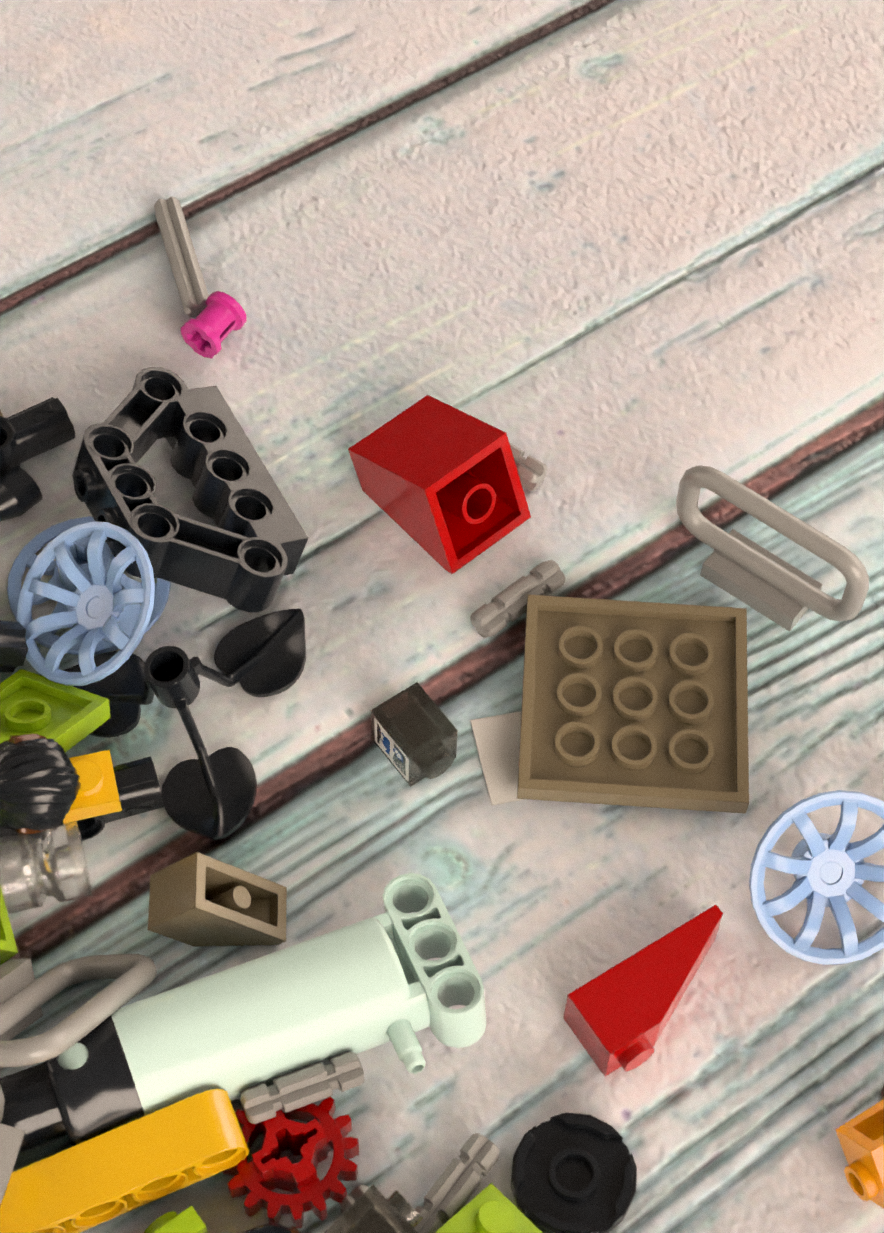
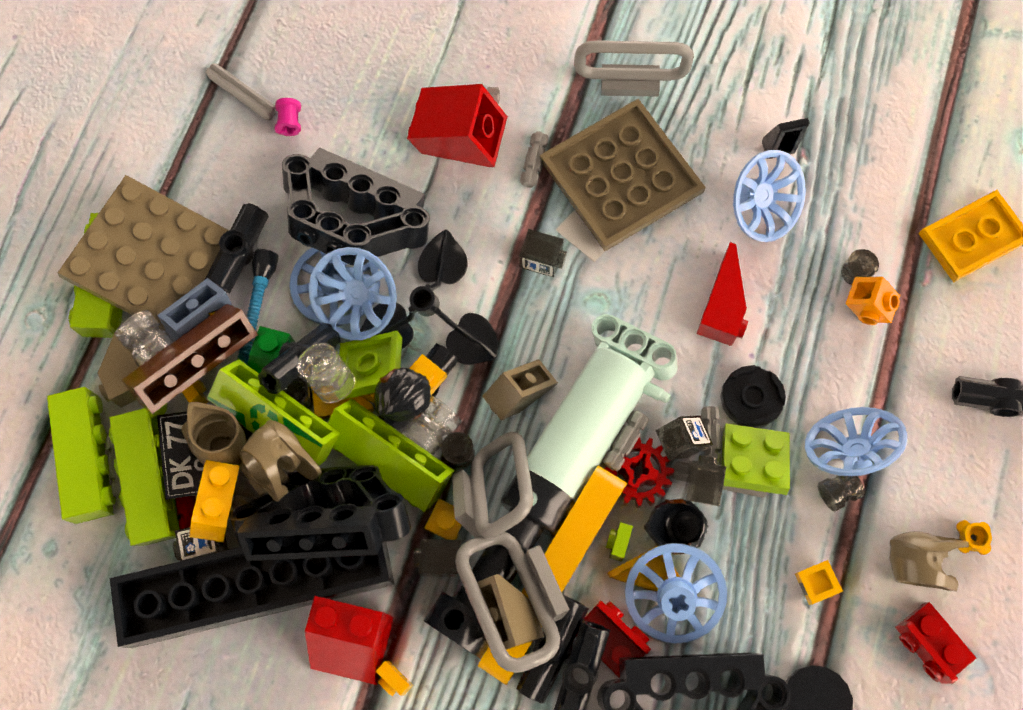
camera: 30 degrees left, 15 degrees up
(46, 919) = (454, 447): none -> clear smoke wheel
(401, 1151) = (684, 437): none -> clear smoke brick

